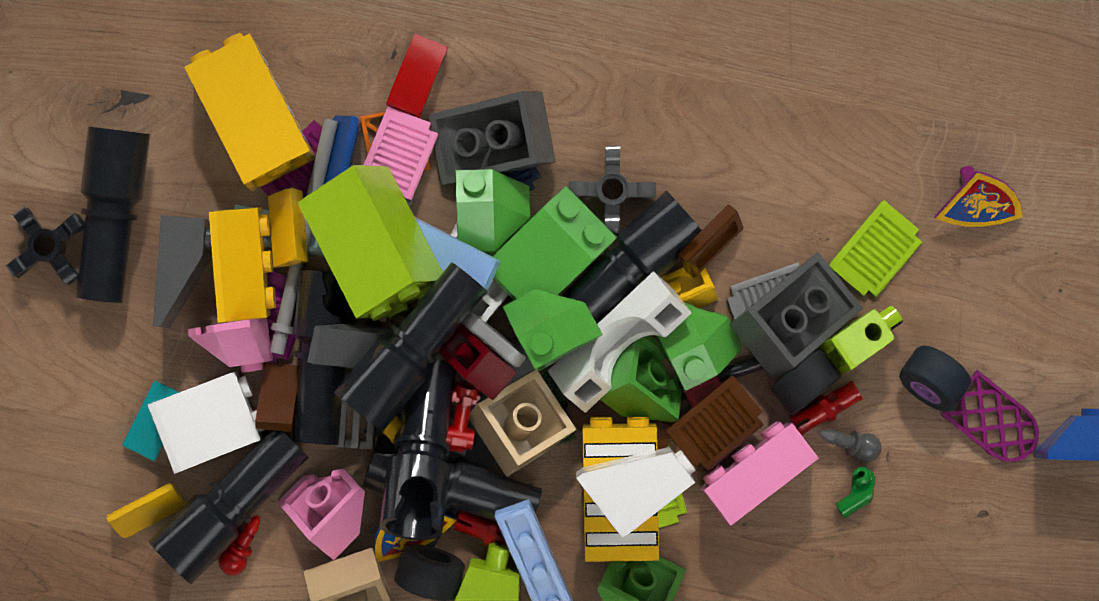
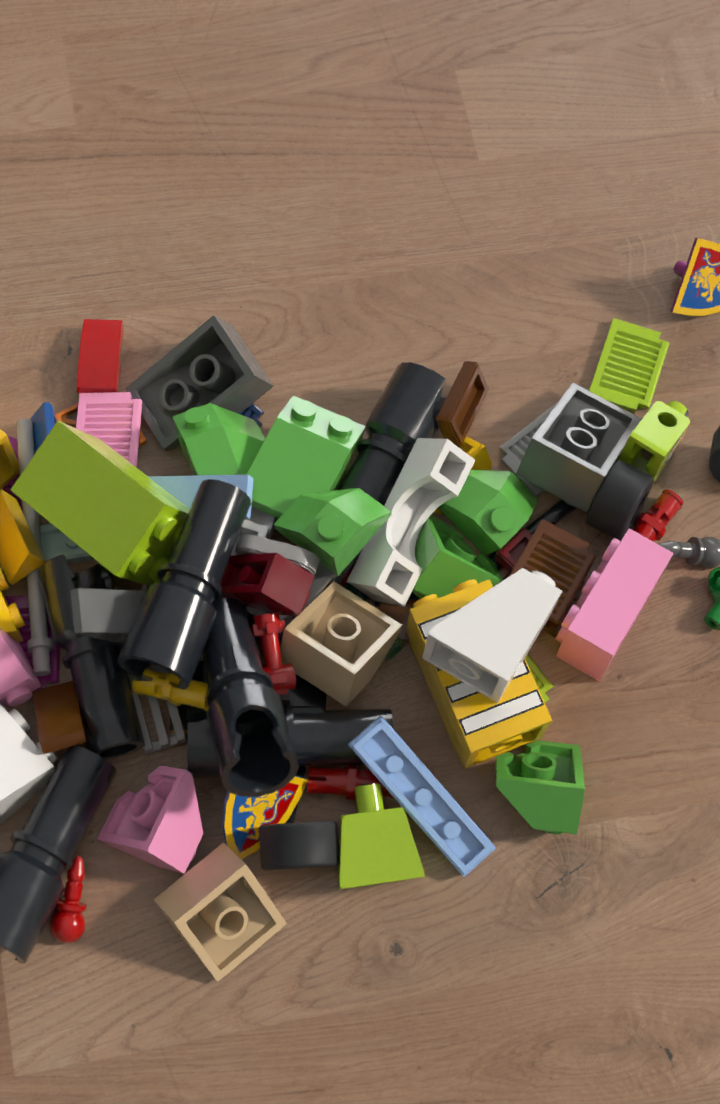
camera: 20 degrees left, 20 degrees down
(641, 190) = (340, 378): dark grey pin -> none

